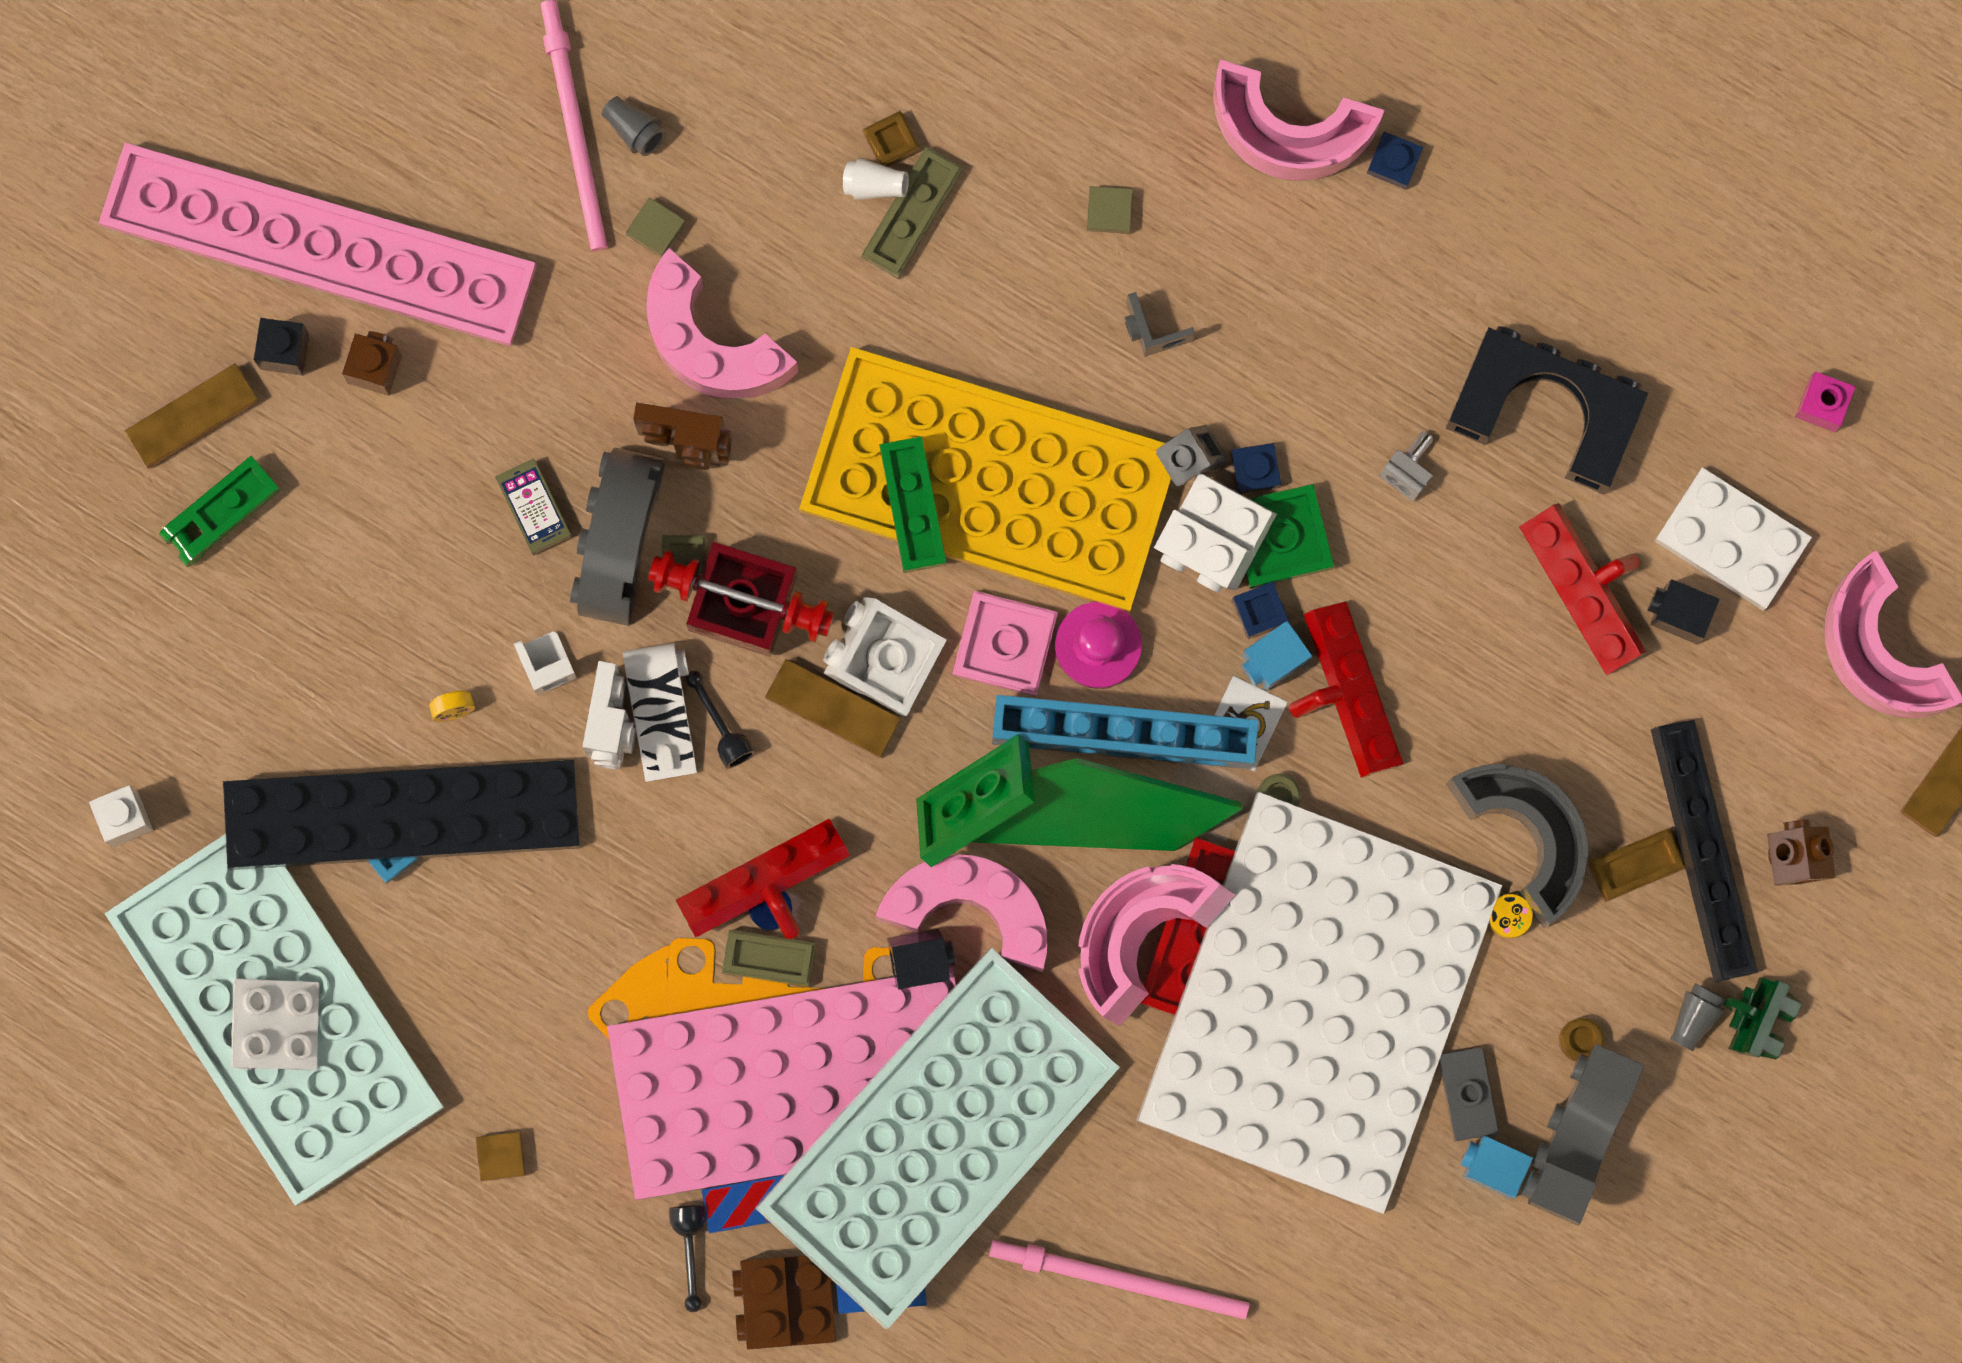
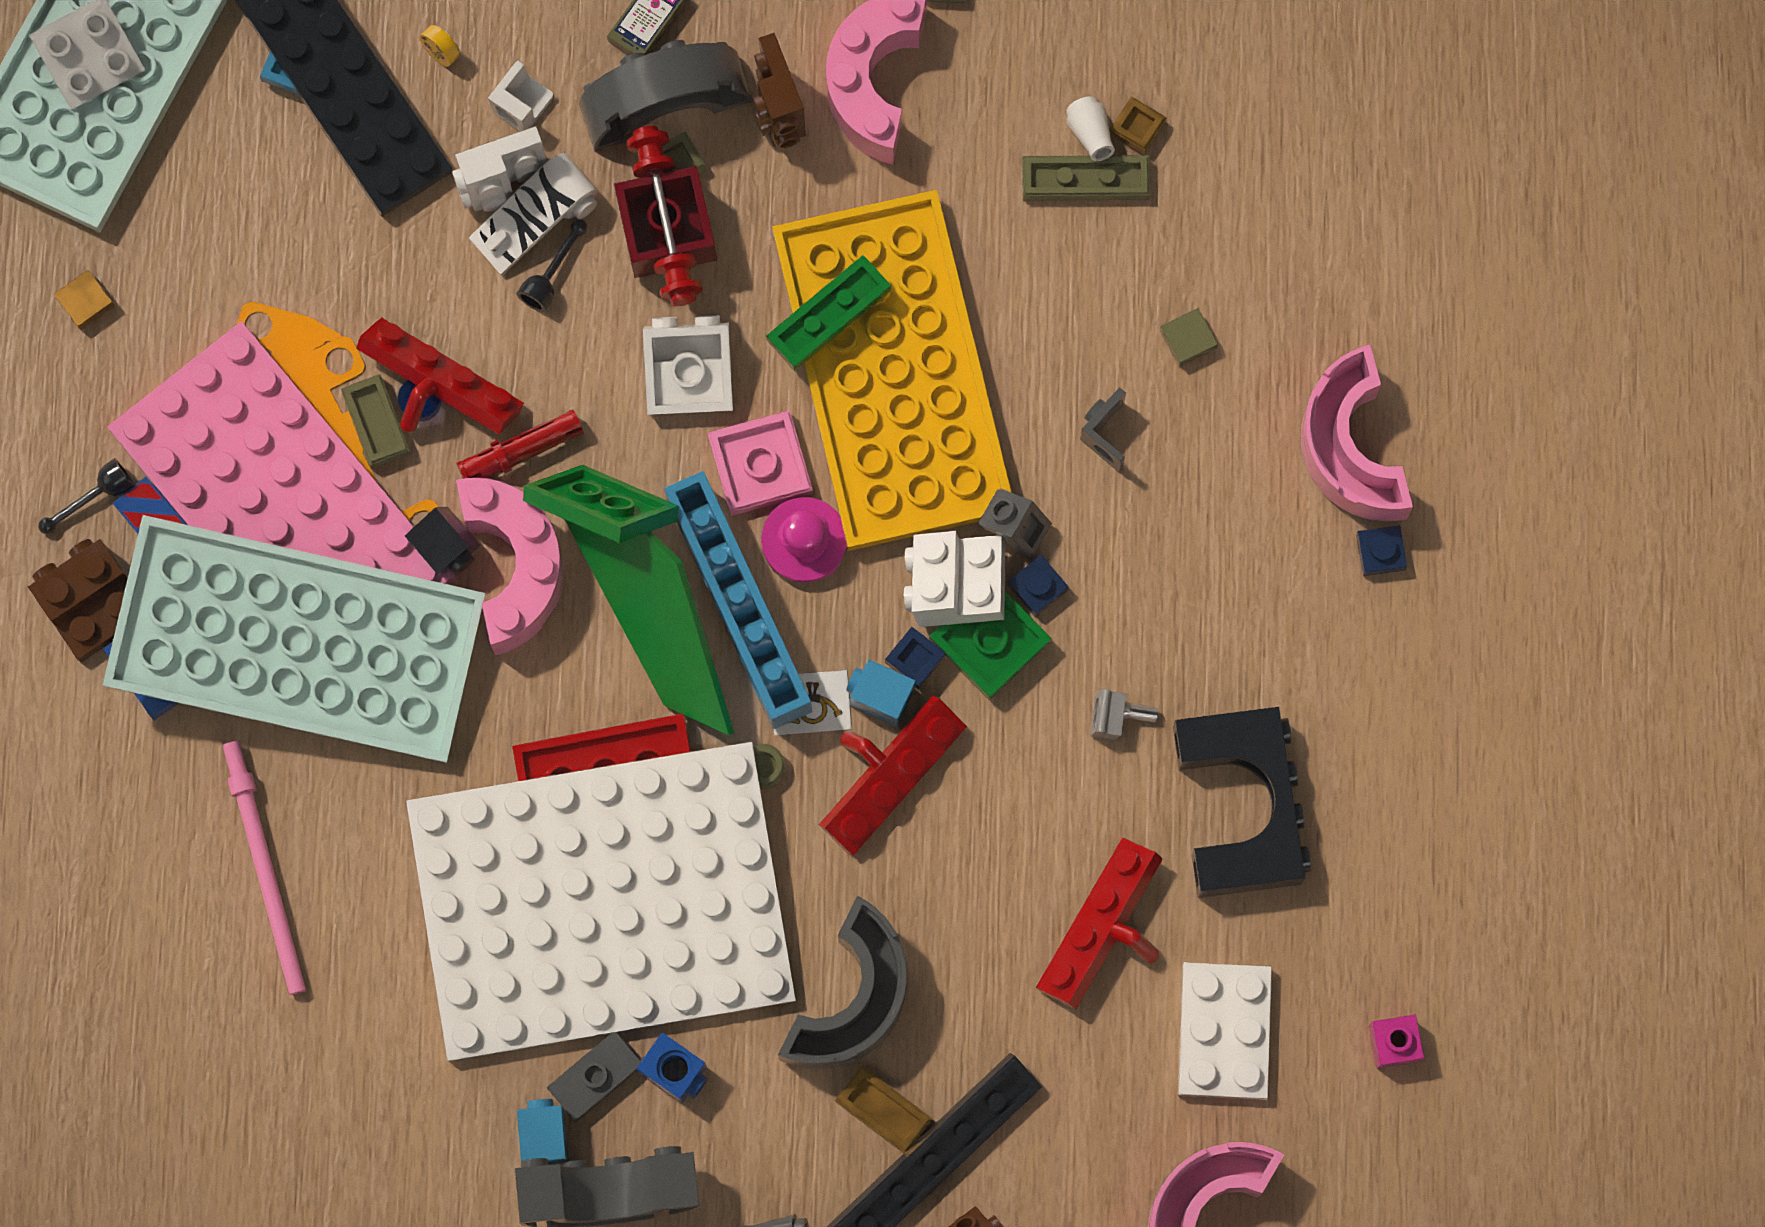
camera: 65 degrees right, 5 degrees down
(832, 708) = (620, 353): pearl gold tile -> none
(869, 851) = (521, 447): none -> red pin
(1124, 918) = (567, 690): bright pink brick -> none
(1487, 1034) = (659, 1055): none -> blue brick
(1510, 916) = (772, 1024): yellow tile -> none
(1580, 1037) = (704, 1144): pearl gold tile -> none
(1682, 611) = (1131, 1020): black brick -> none

